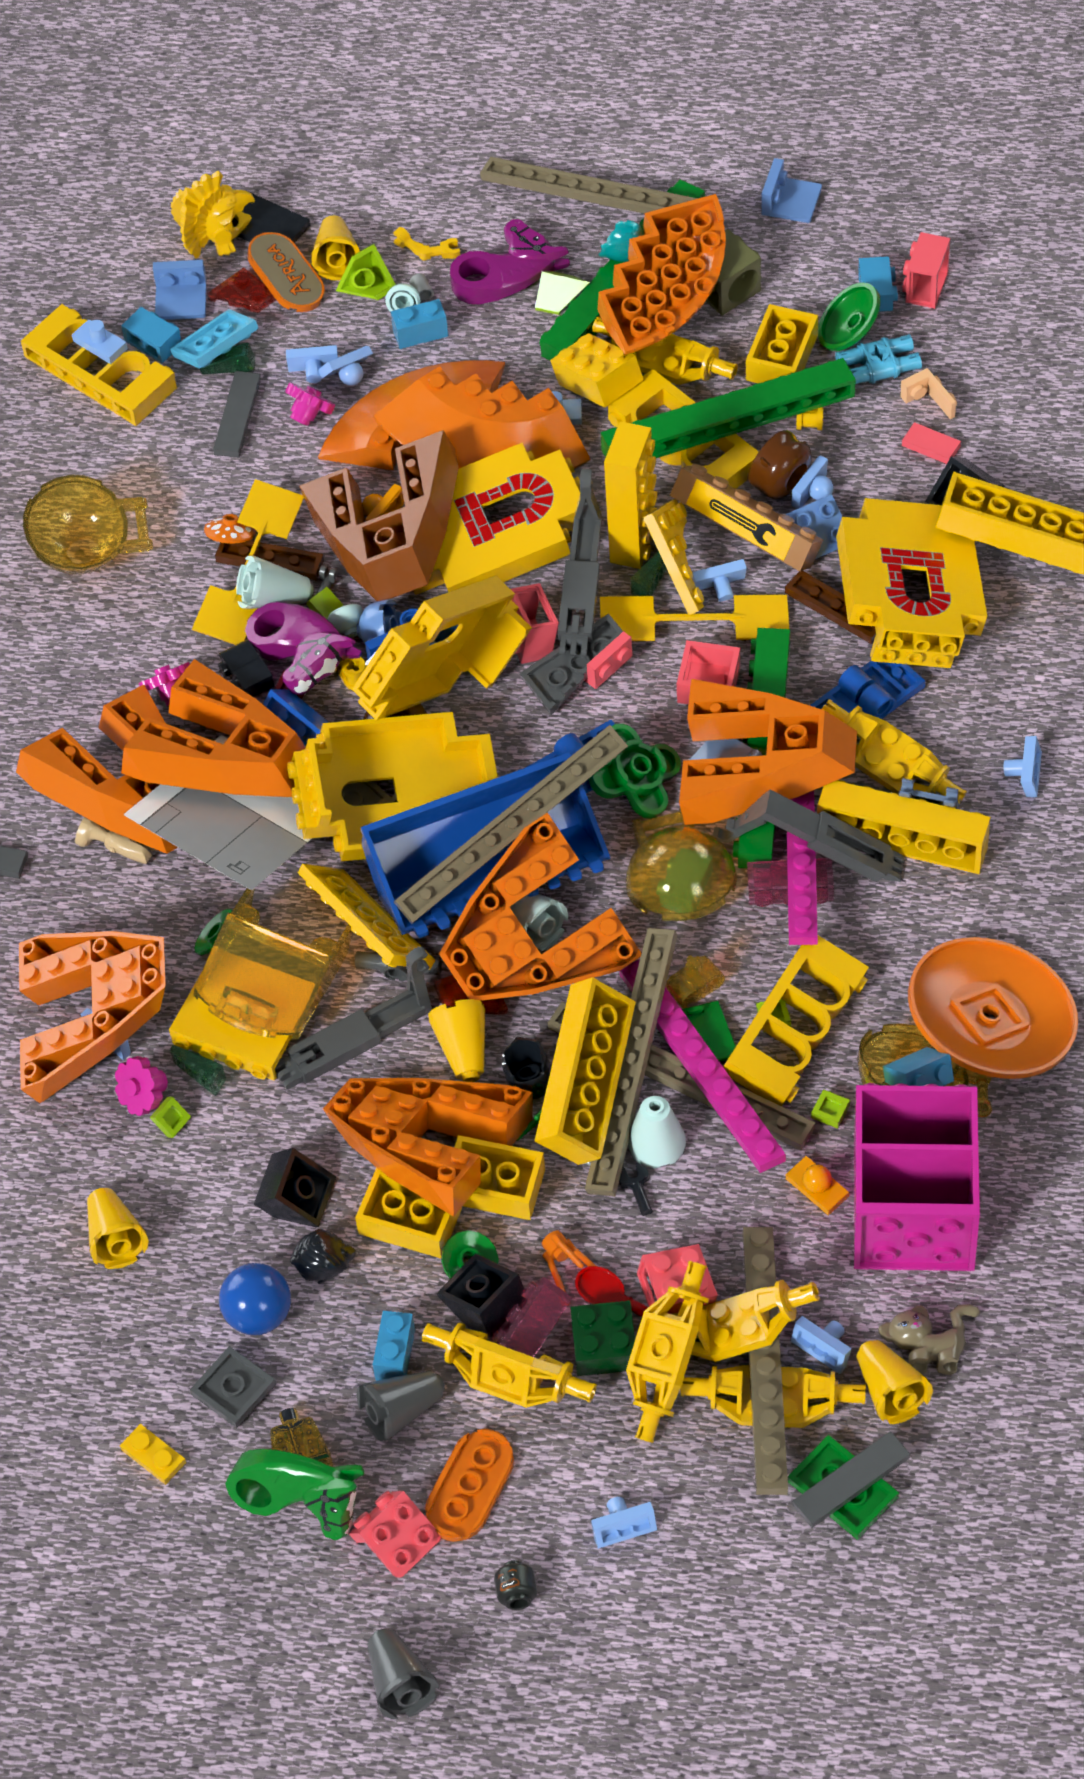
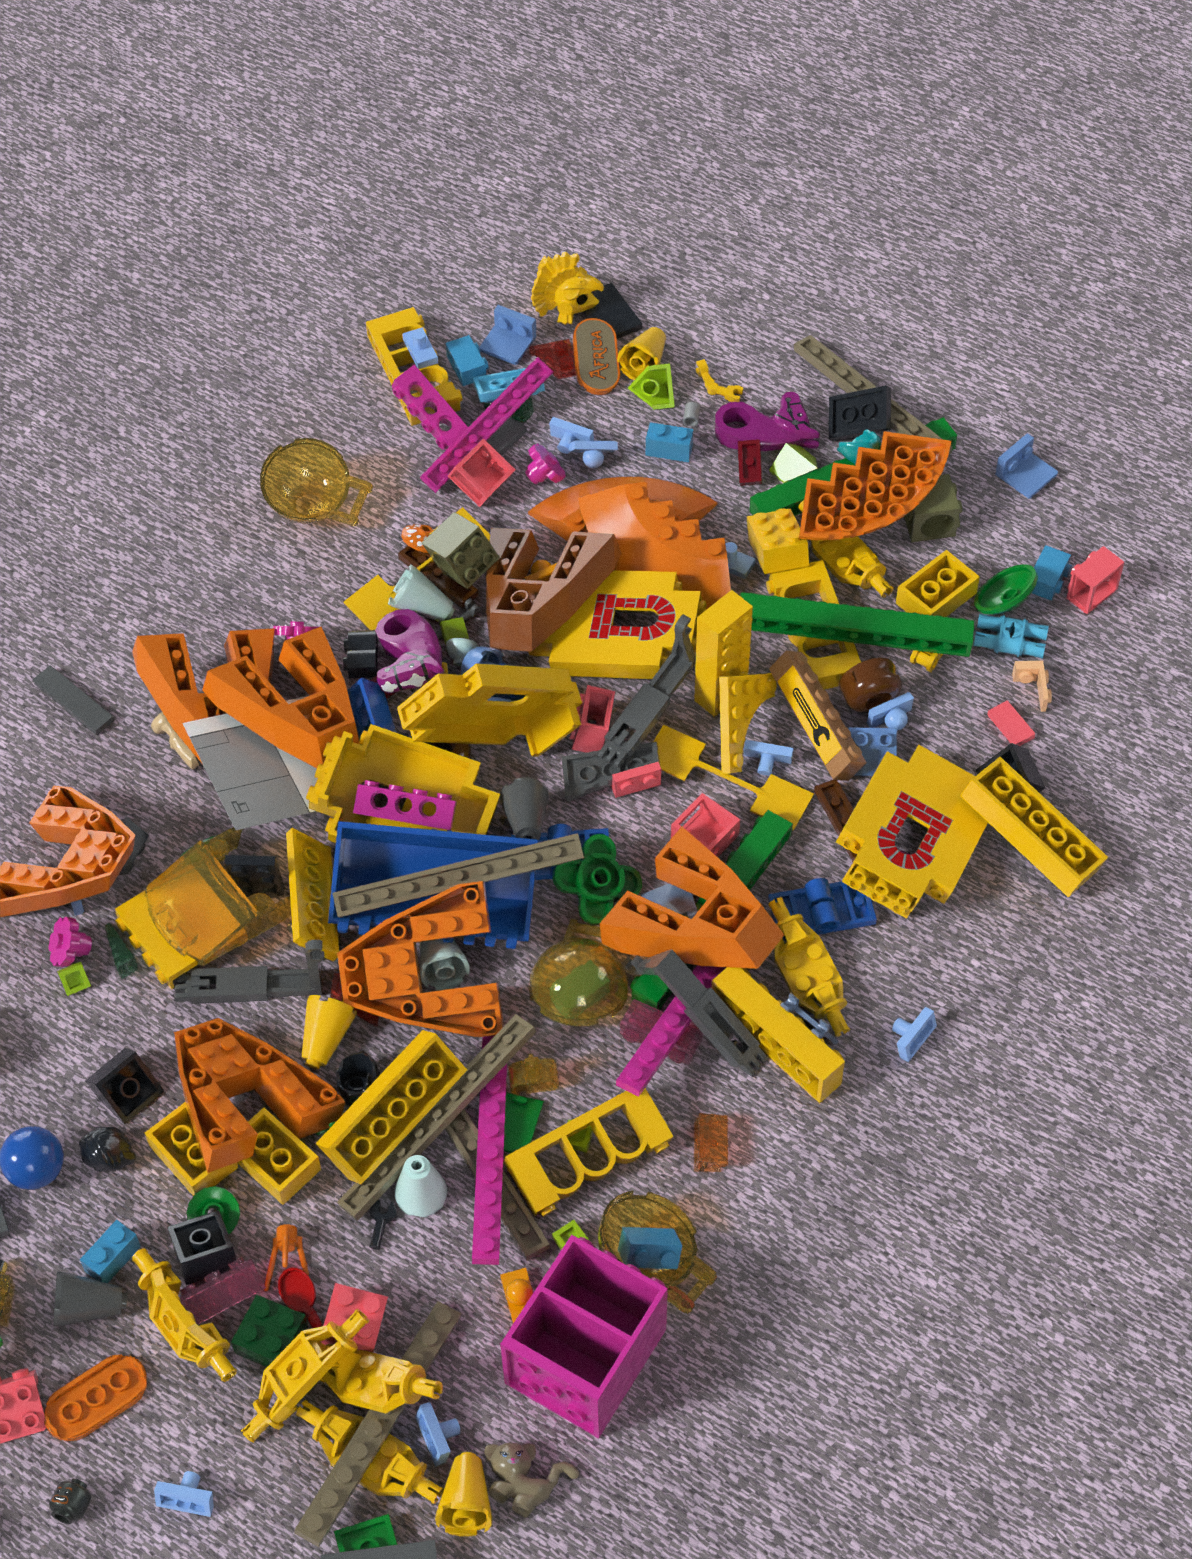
camera: 25 degrees right, 0 degrees up
(168, 393) = (414, 380): none -> dark pink brick
(223, 388) = (487, 422): none -> dark pink tile
(248, 439) = (481, 472): none -> coral piece
(290, 518) = (460, 550): none -> olive brick
(299, 919) = (255, 874): none -> black plate
(364, 806) = (366, 805): none -> dark pink brick
(402, 296) = (669, 415): light aqua brick -> none
(514, 307) = (750, 462): none -> dark red plate
(519, 735) = (525, 806): none -> dark grey cone
(596, 210) = (859, 411): none -> black plate
(648, 577) = (708, 729): clear green slope -> none
(899, 954) = (710, 1142): none -> clear orange hinge
(985, 975) = (770, 1197): orange dish -> none

